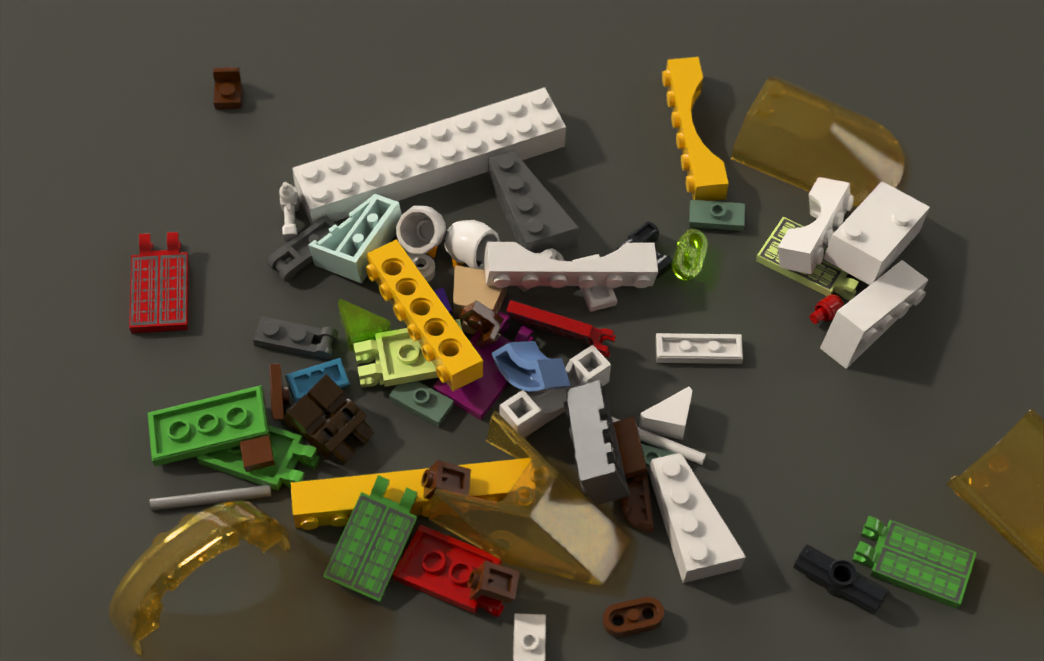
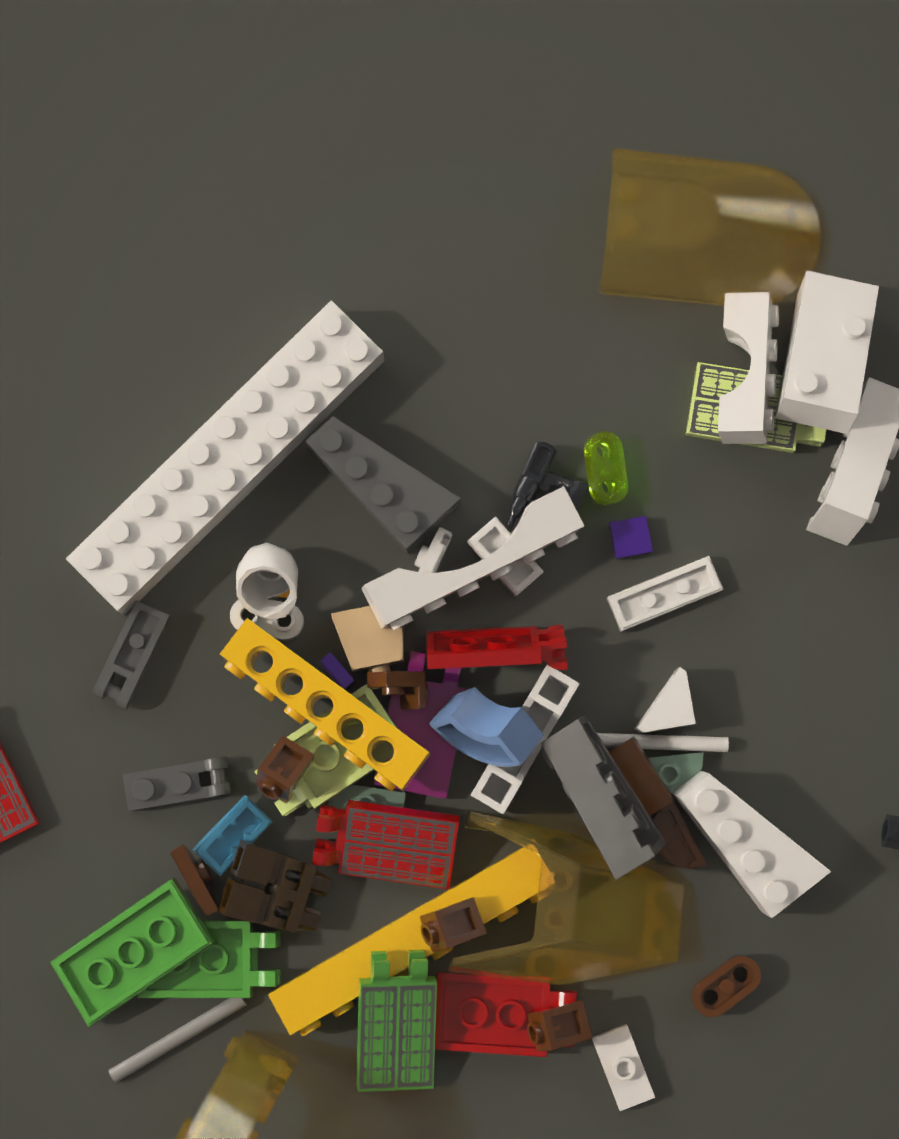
camera: 20 degrees left, 25 degrees up
(257, 453) = (209, 970): reddish brown tile -> none
(289, 203) = (80, 601): white piece -> none
(359, 323) = (248, 741): clear neon green slope -> none
(365, 230) = (195, 619): light aqua wedge -> none
(373, 341) = (283, 769): none -> reddish brown bracket
(427, 424) = (388, 843): none -> red tile
(467, 242) = (331, 566): white piece -> none
(689, 305) = (630, 537): none -> dark purple tile
(705, 171) = (578, 336): yellow arch -> none
(716, 215) = (614, 391): sand green plate -> none
(826, 309) = (798, 475): red cylinder -> none

